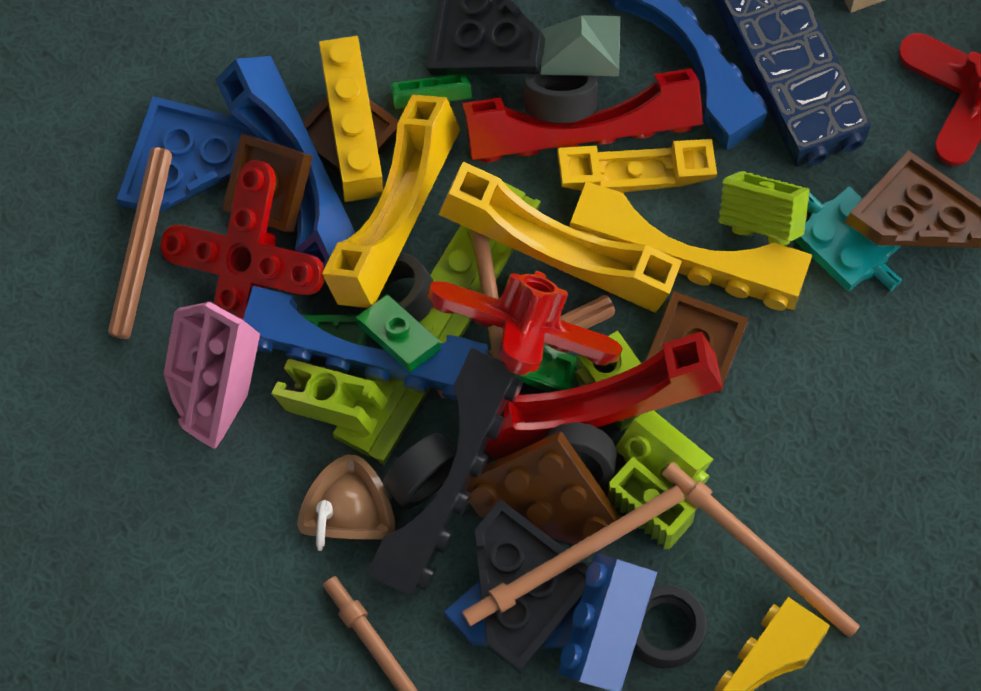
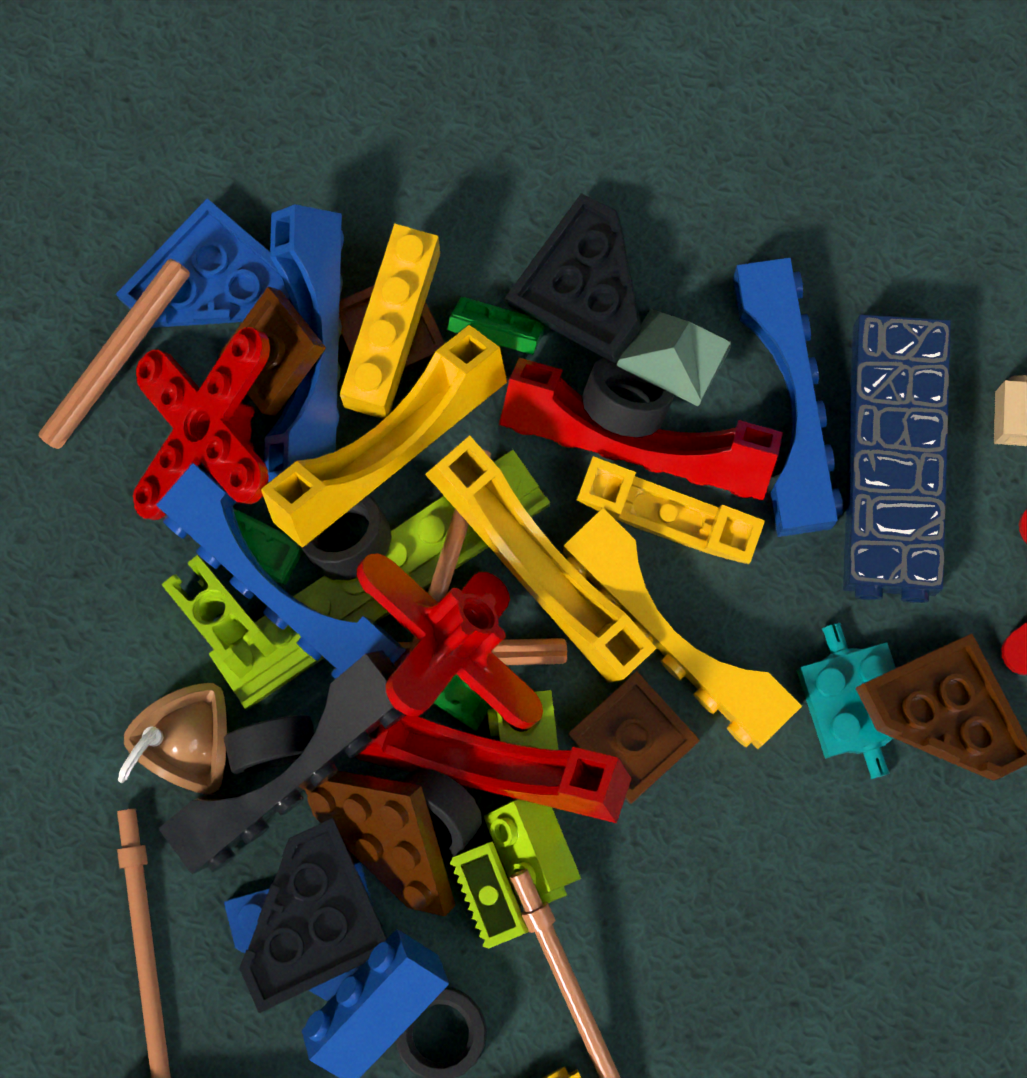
camera: 30 degrees right, 10 degrees up
(209, 369) = (110, 530): bright pink wedge -> none
(398, 333) = (312, 590): green plate -> none
(504, 596) = (277, 928): nougat bar -> none
(763, 207) = (778, 627): lime brick -> none

